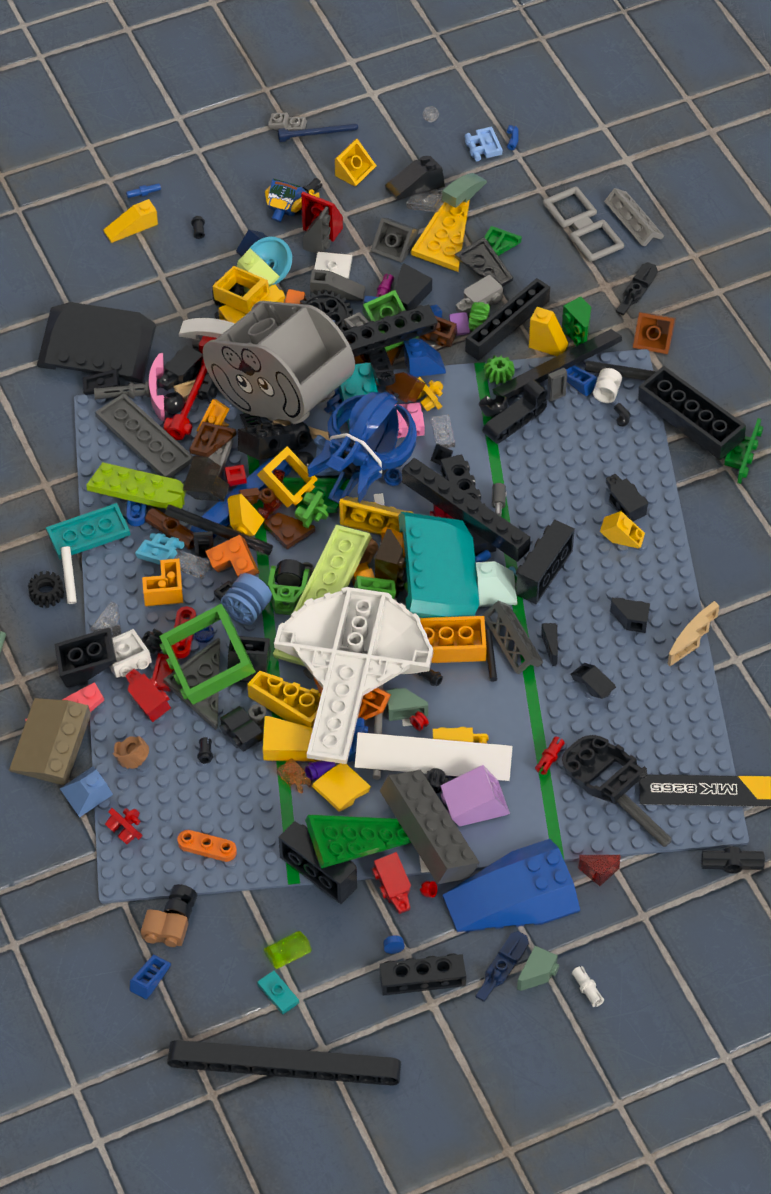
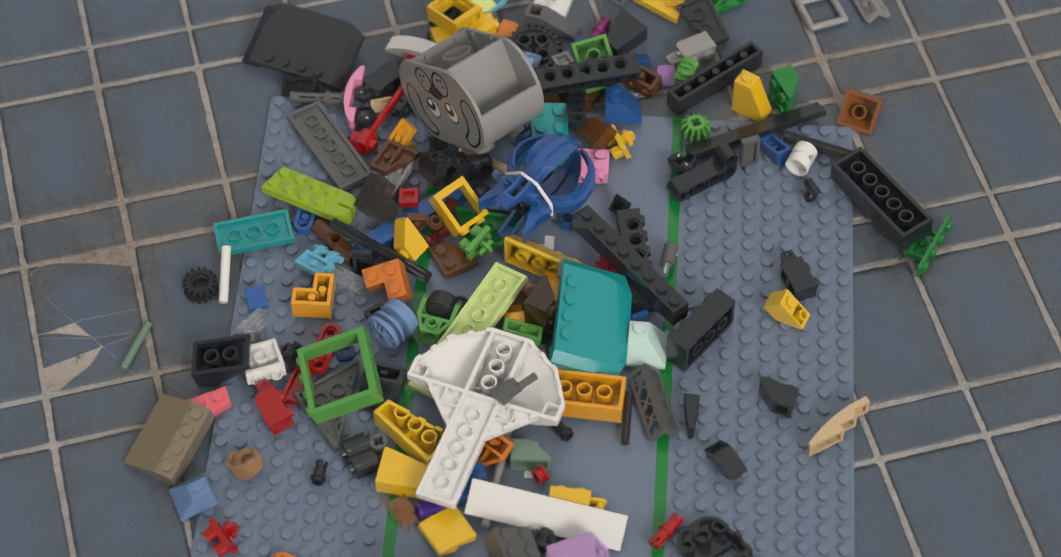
camera: 10 degrees right, 0 degrees up
(105, 593) = (256, 297): none -> blue slope
(376, 642) = (509, 388): none -> dark grey piece
(443, 431) = (626, 181): clear plate -> none
(641, 281) = (858, 58): black piece -> none

